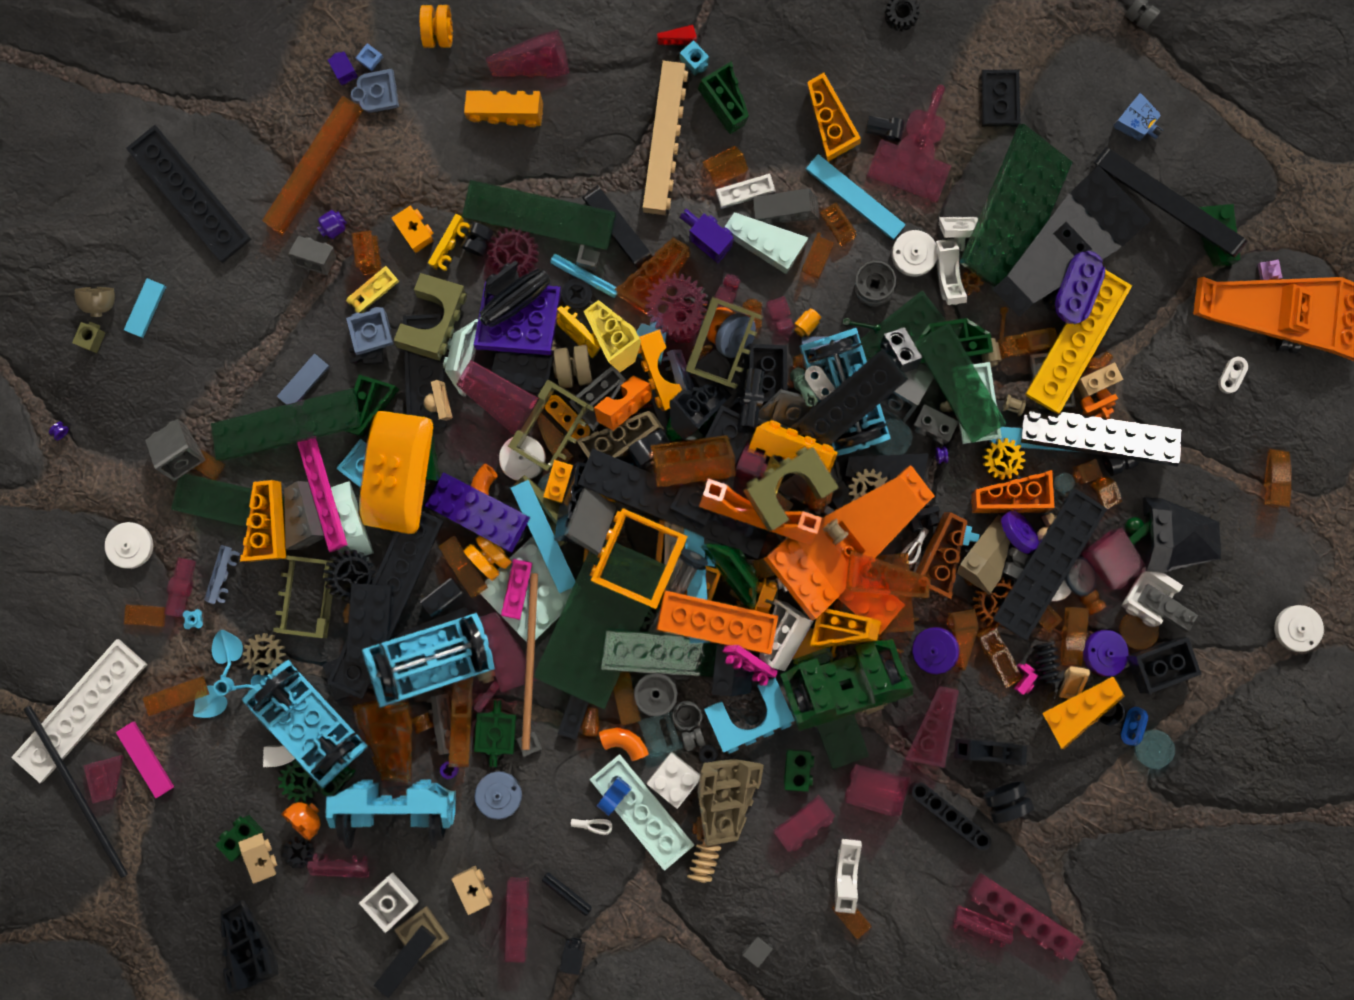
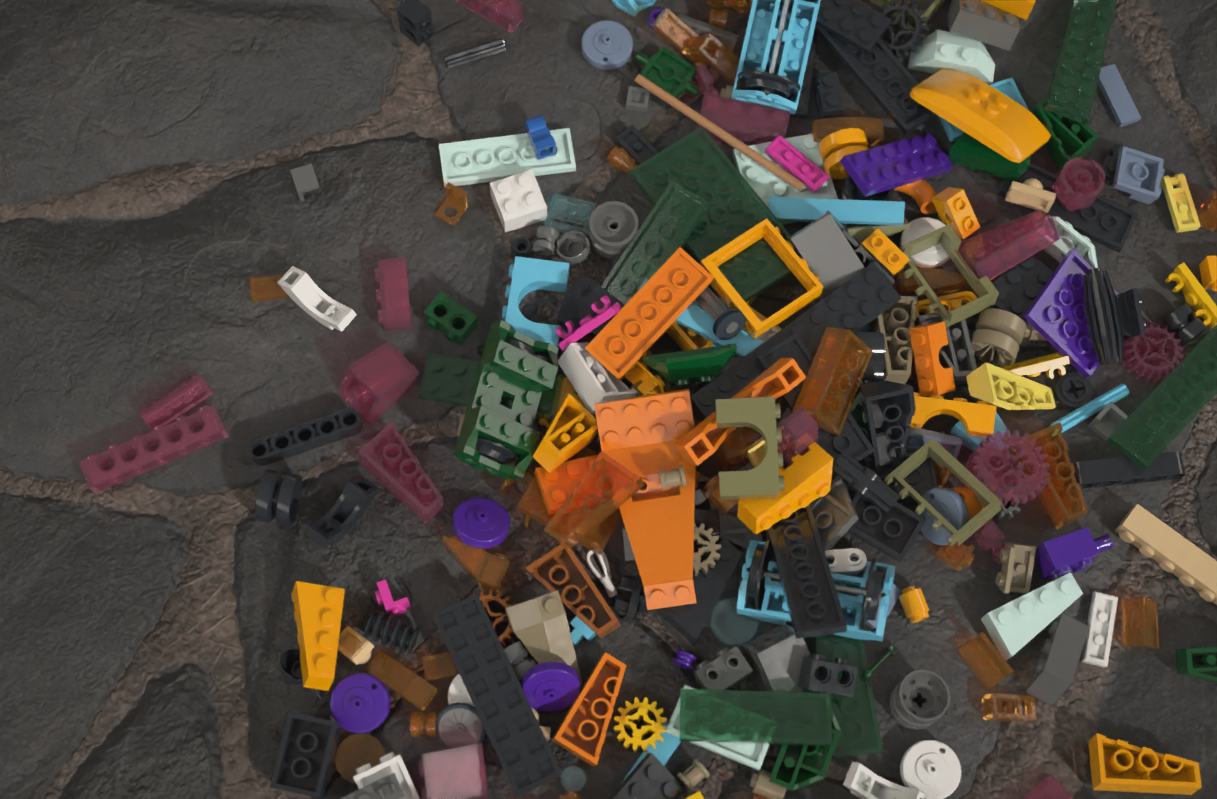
camera: 115 degrees right, 15 degrees down
(322, 494) = (993, 45): dark pink tile -> none
(409, 358) = (1079, 183): none -> clear pink brick
(433, 341) = (1097, 225): olive arch -> none
(488, 448) = (956, 211): none -> light orange brick
(586, 825) = (528, 104): white piece -> none
(624, 739) = (587, 179): orange cylinder -> none
(625, 699) = (615, 192): clear orange slope -> none
(704, 861) = (421, 184): tan piece -> none
(724, 797) = (471, 233): dark tan wedge -> none
(740, 266) = (1016, 568): none -> dark tan bracket
(779, 310) = (944, 584): clear pink plate -> none
(798, 378) = (840, 541): sand green pin -> none
(855, 197) = (1030, 746): medium azure tile -> none
(998, 655) = (432, 587): clear orange slope -> none
(1133, 726) = (263, 684): blue plate -> none
(1155, 749) = (225, 694): clear light blue tile -> none

